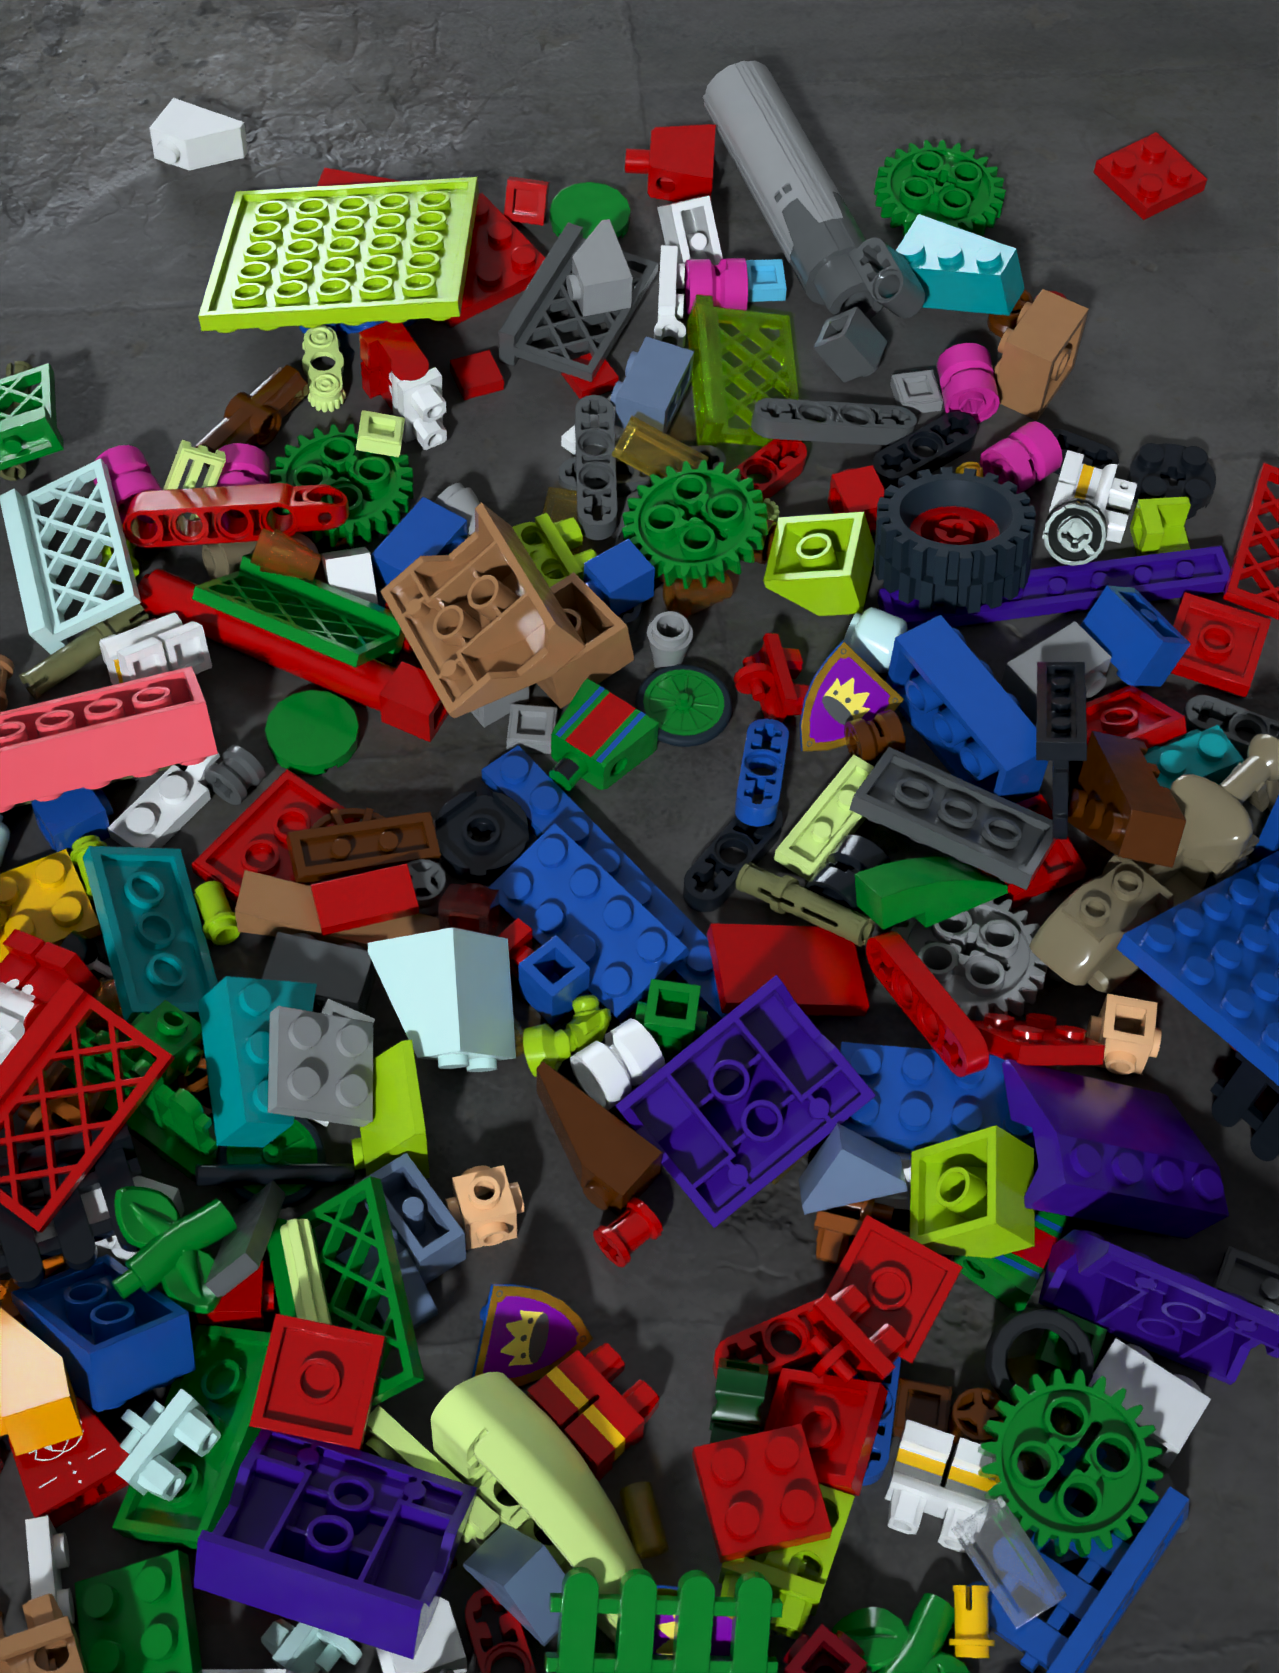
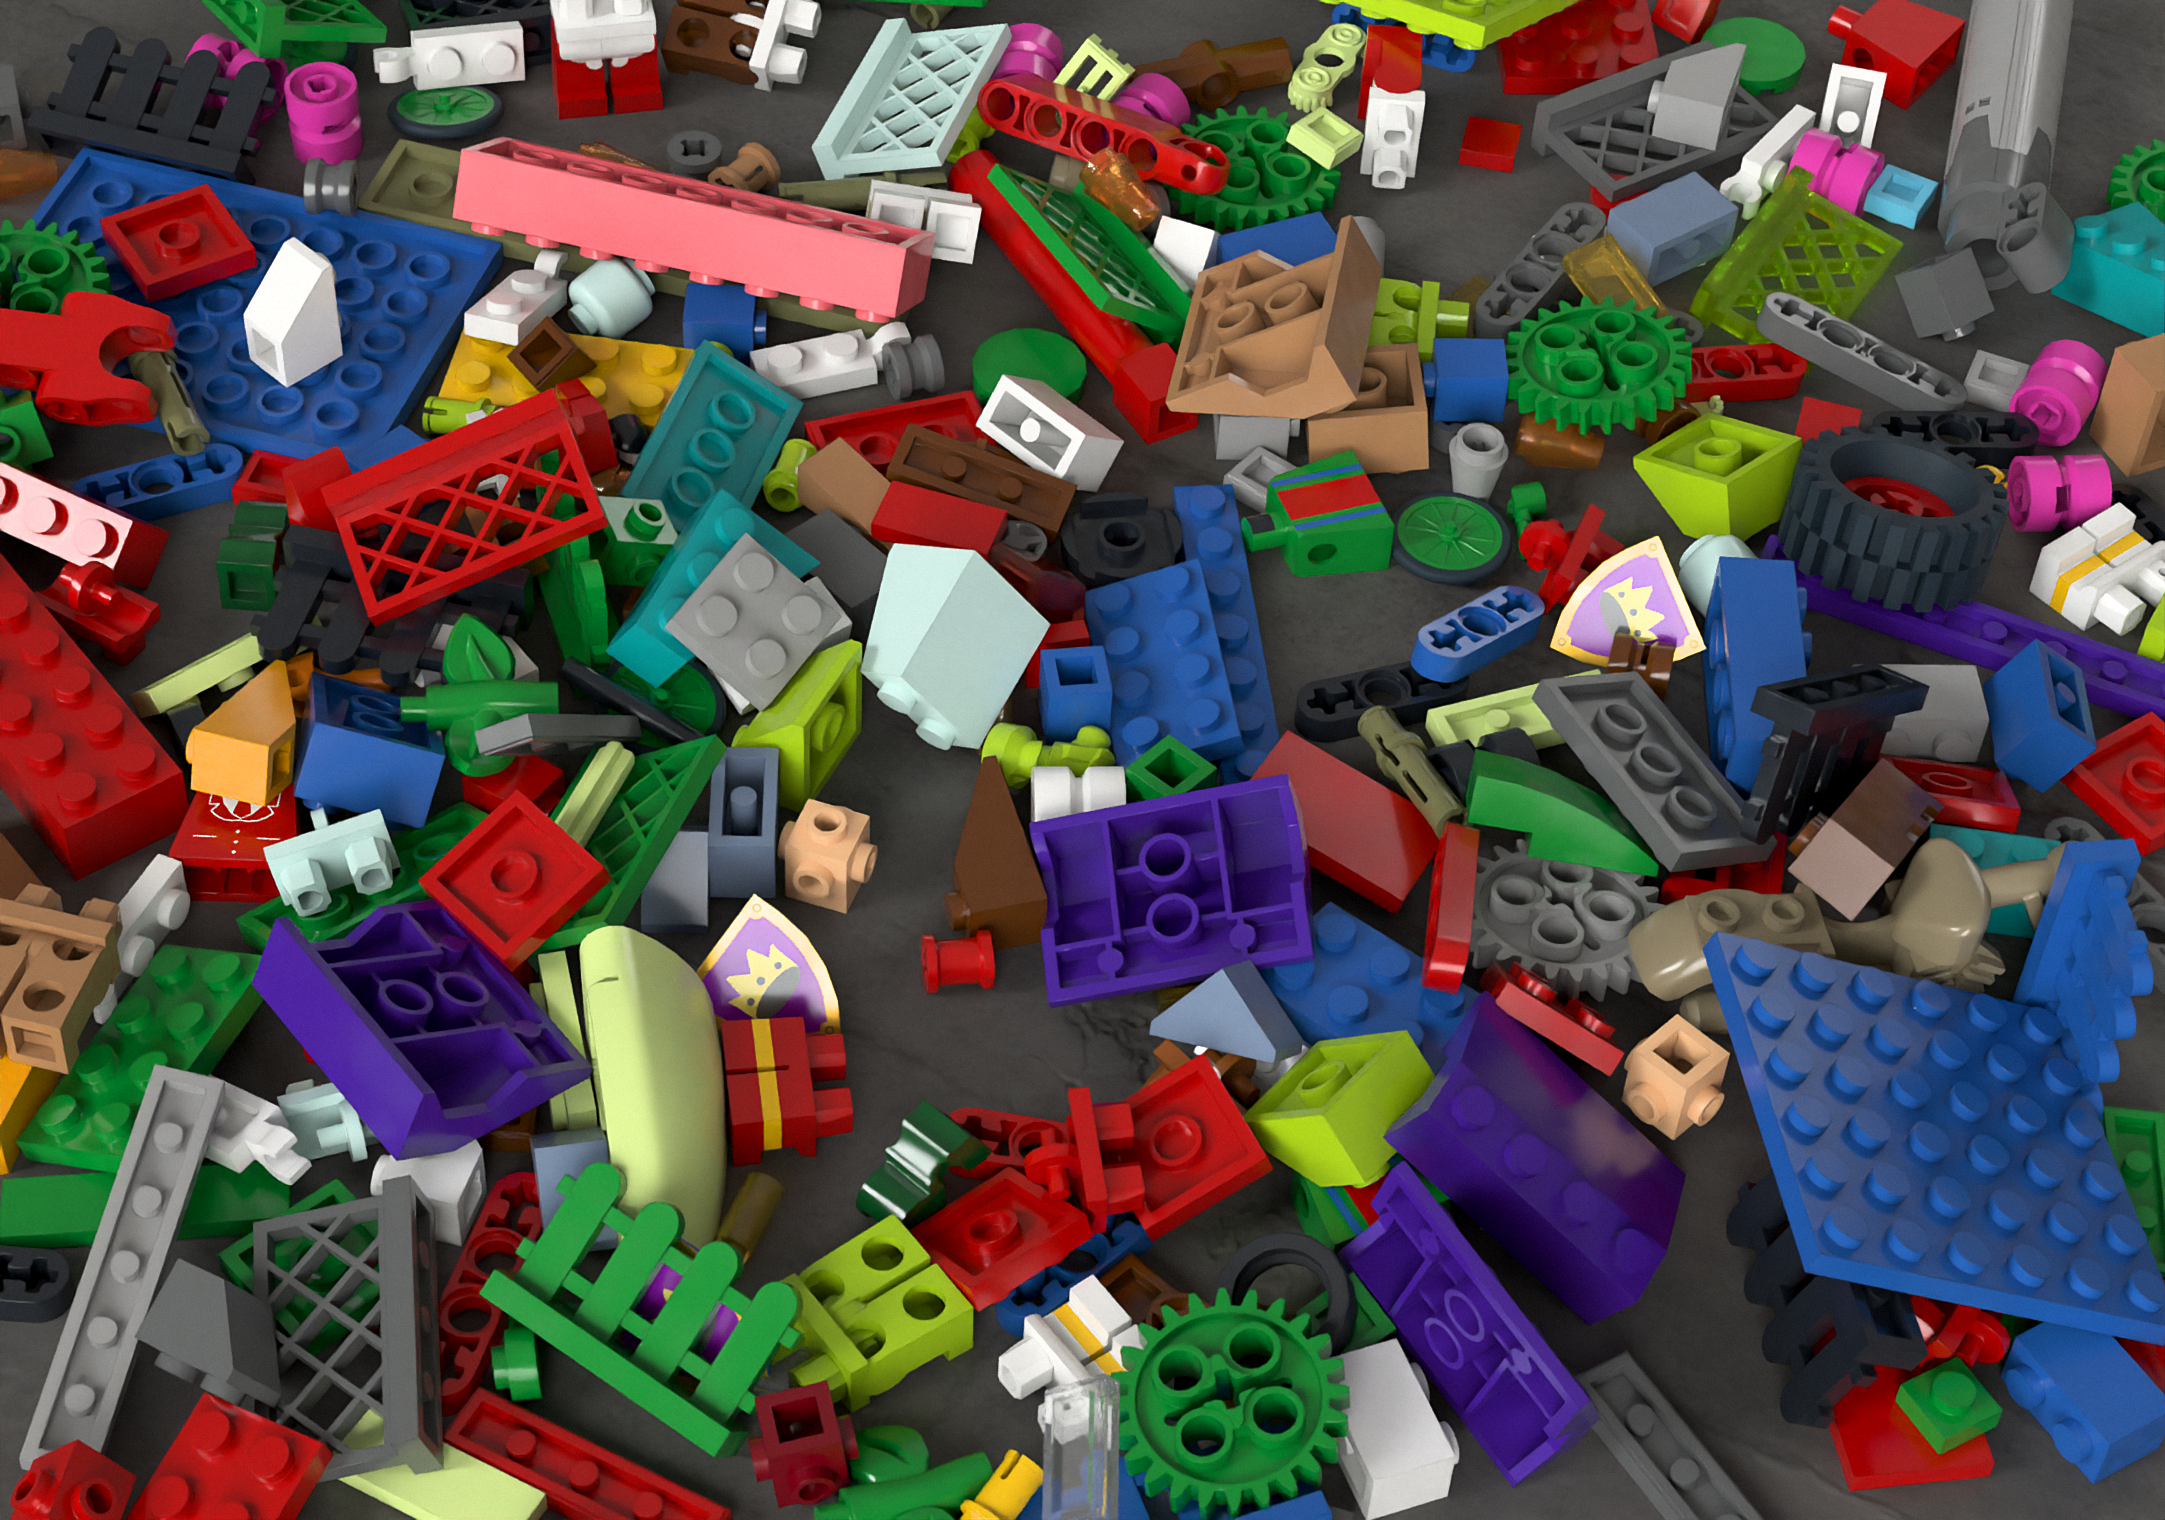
camera: 35 degrees right, 10 degrees down
(375, 778) = (1049, 432): none -> white brick
(708, 653) = (1526, 502): none -> green hand
(761, 1493) = (873, 1240): red plate -> none
(1075, 532) = (2054, 581): pearl dark grey wheel -> none

